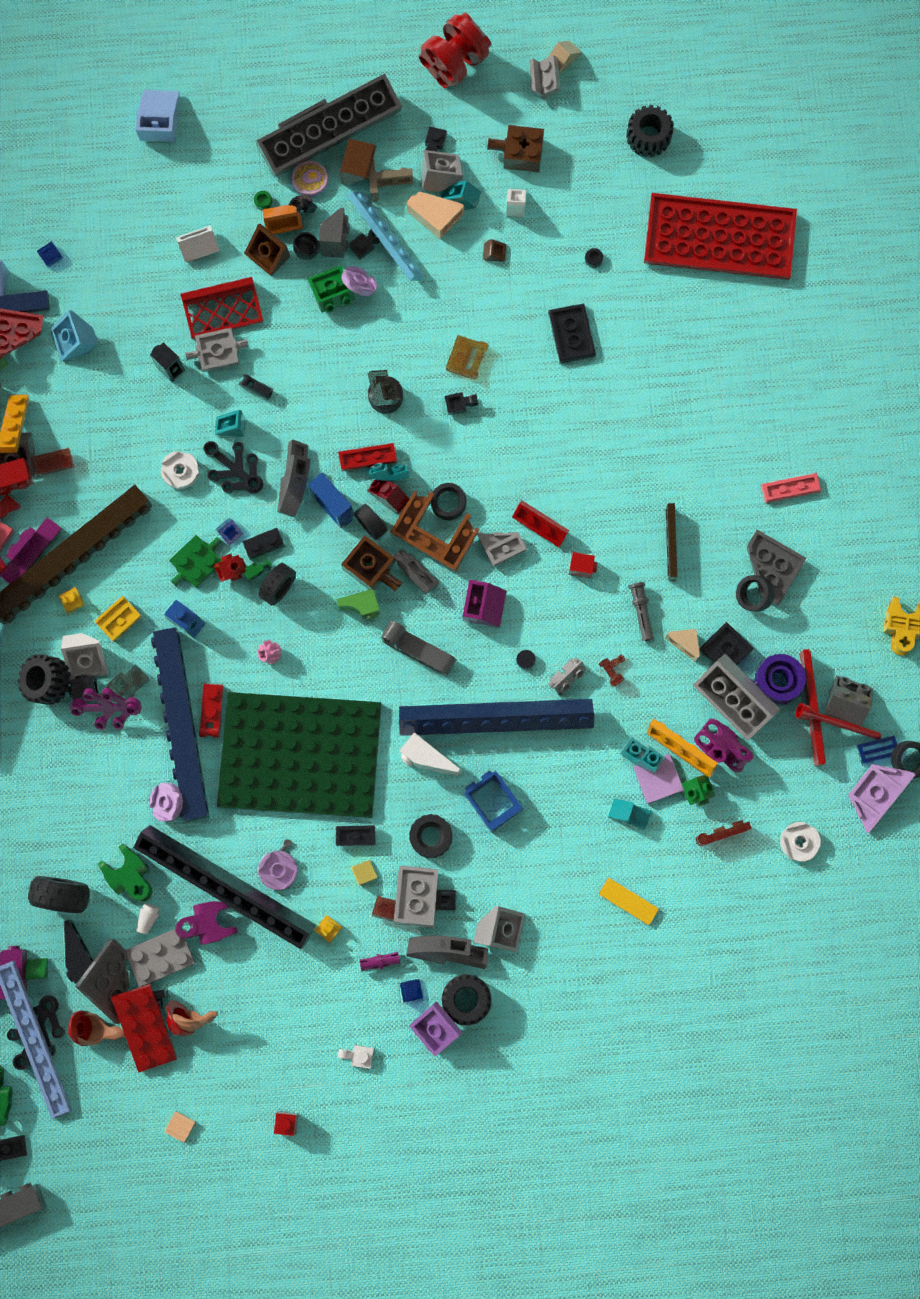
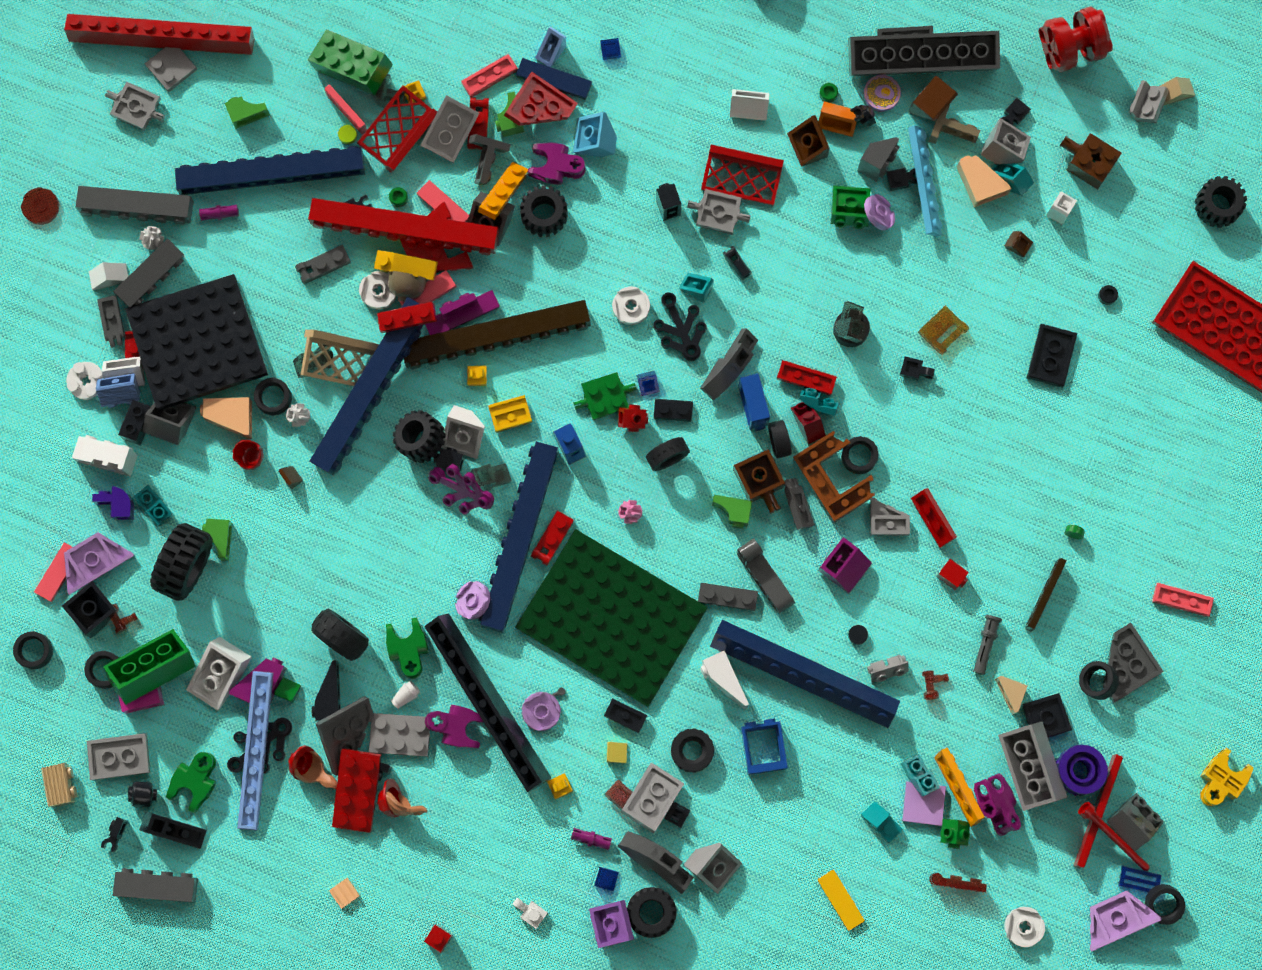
camera: 25 degrees right, 0 degrees up
(49, 414) = (539, 197): none -> black tyre
(52, 376) = (559, 164): none -> magenta piece
(53, 462) = (521, 242): clear red plate -> none
(255, 570) = (654, 431): green plate -> none
(306, 246) = (847, 155): black hair -> none
(394, 684) = (727, 596): none -> dark grey plate
(669, 475) = (1074, 532): none -> green tile

